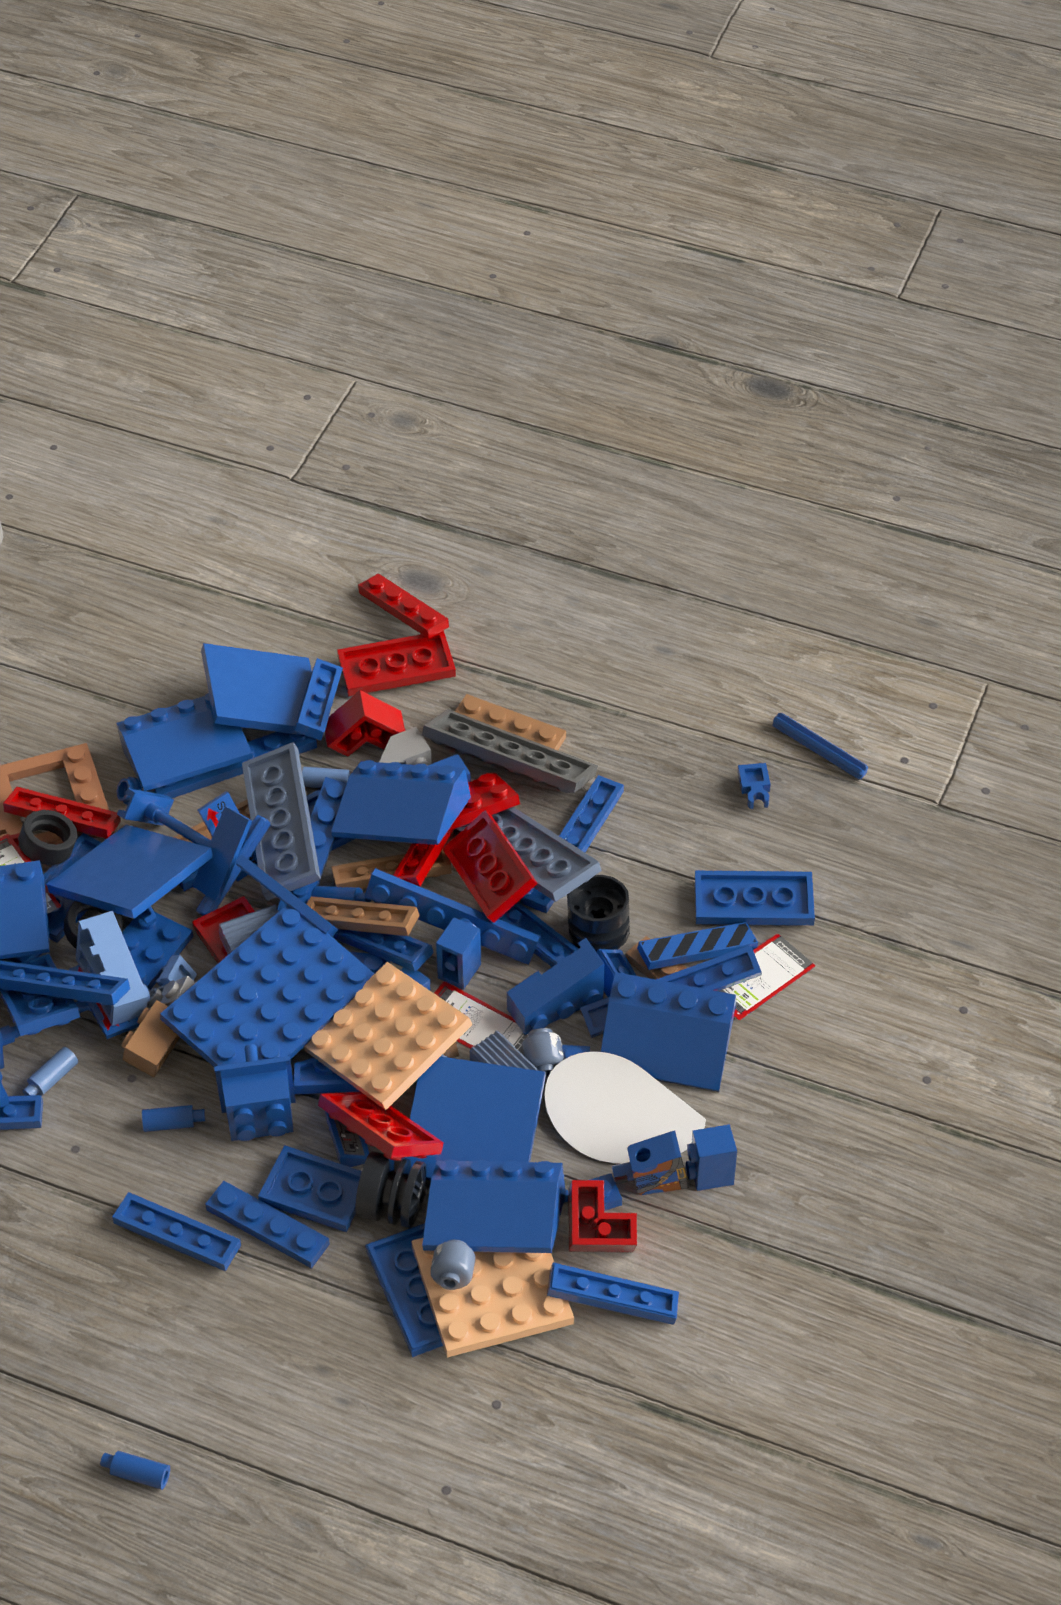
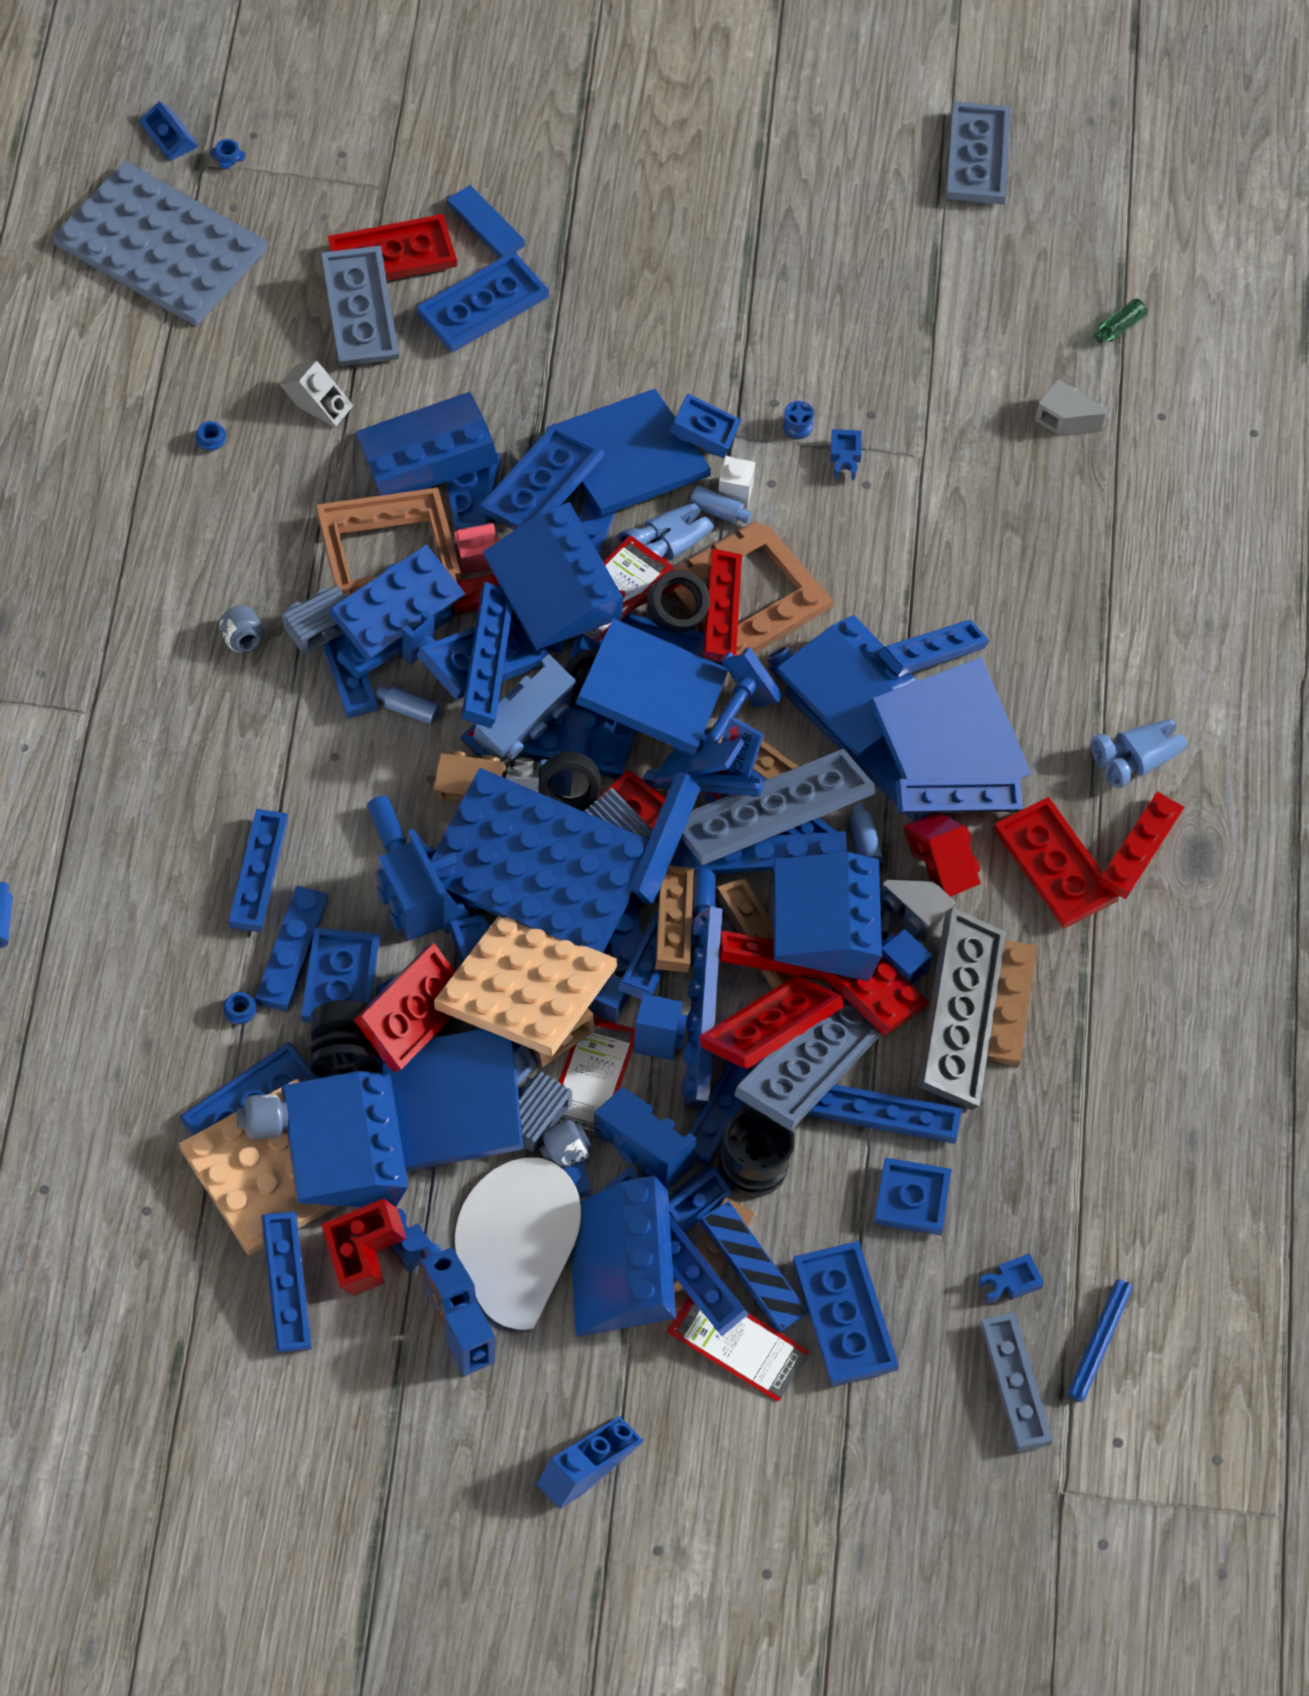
camera: 70 degrees right, 10 degrees up
(170, 681) = (933, 647): none -> blue tile
(178, 950) = (574, 761): none -> black tyre
(312, 1271) = (239, 999): none -> blue plate
(313, 579) = (1144, 745): none -> medium blue piece
(663, 828) = (912, 1196): none -> blue plate
(842, 804) = (1016, 1382): none -> sand blue plate
(843, 1105) = (587, 1461): none -> blue slope

